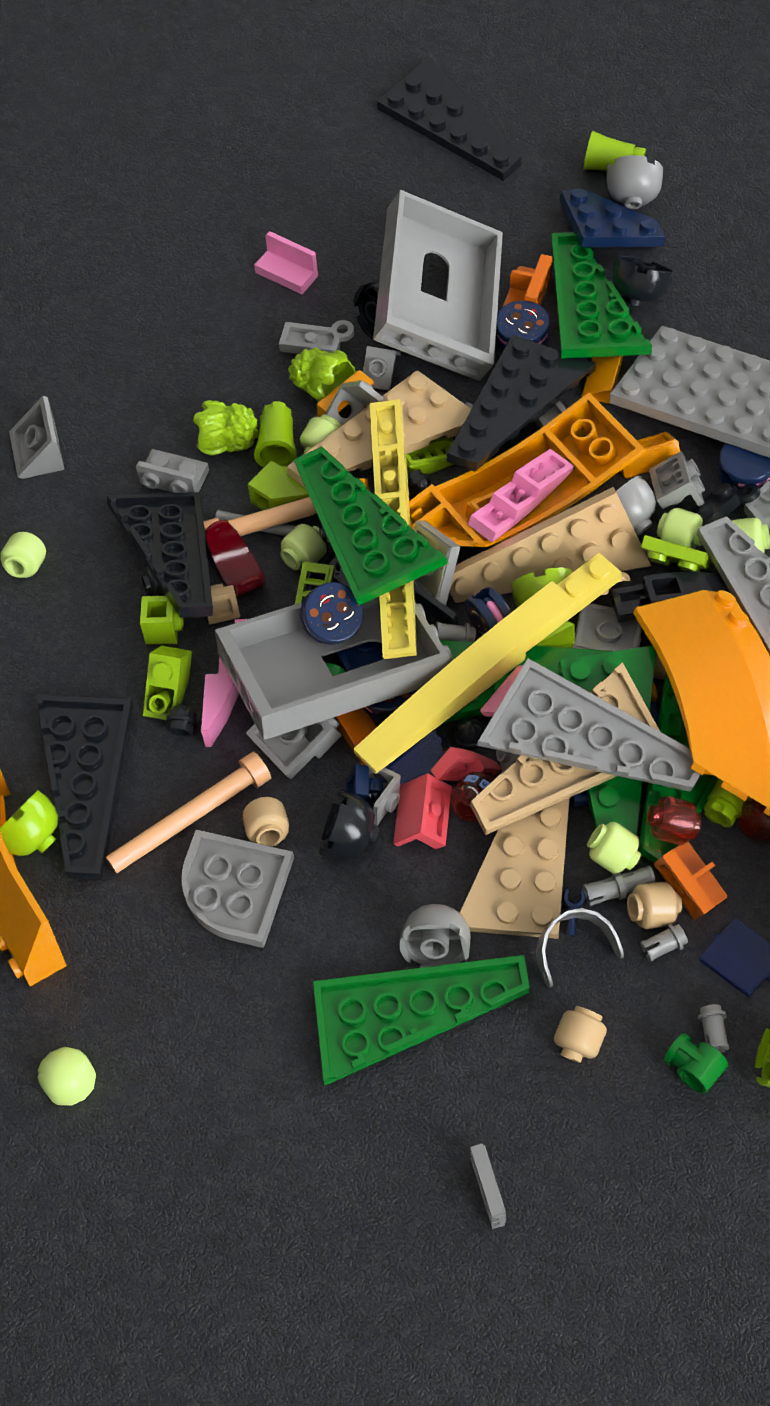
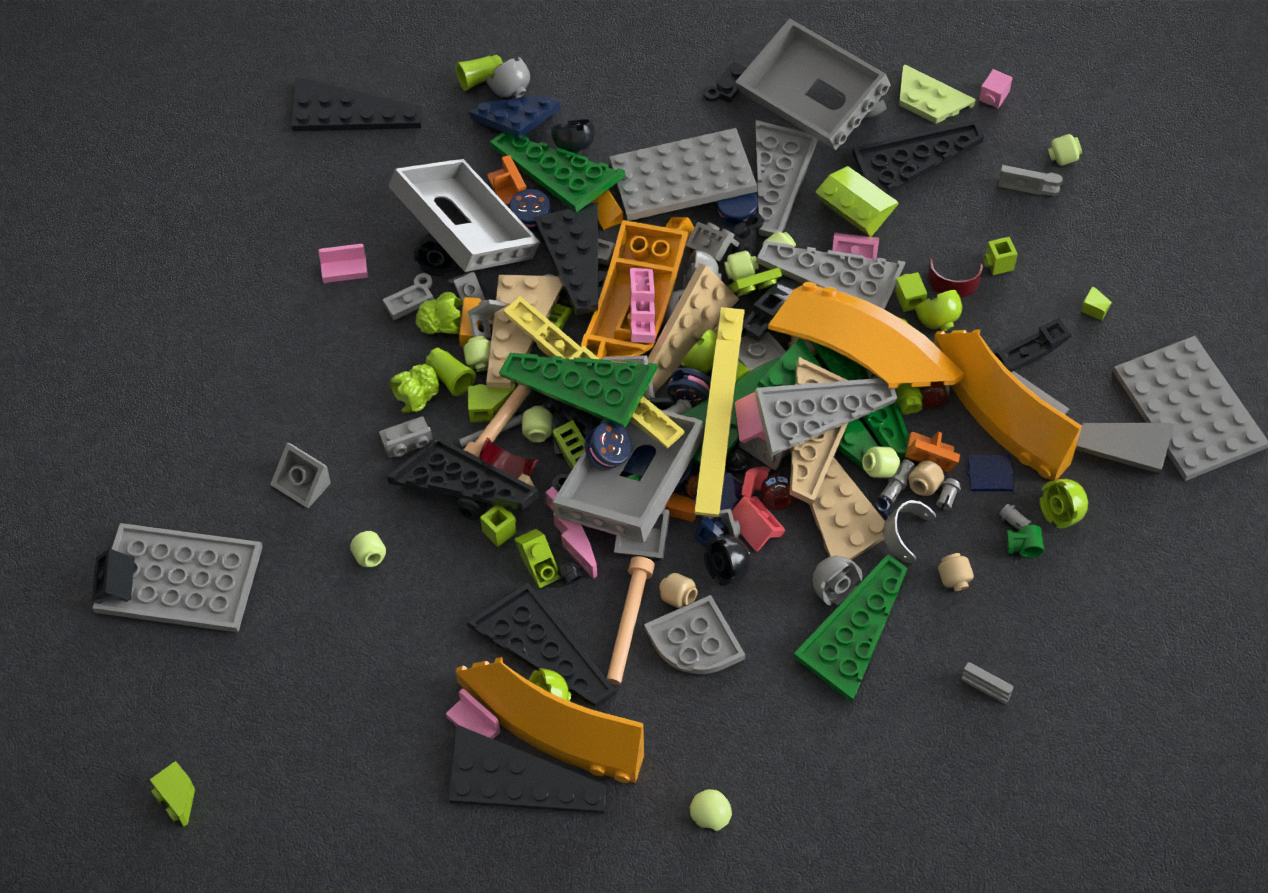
camera: 45 degrees left, 0 degrees up
(674, 820) = (899, 424): clear red head -> none

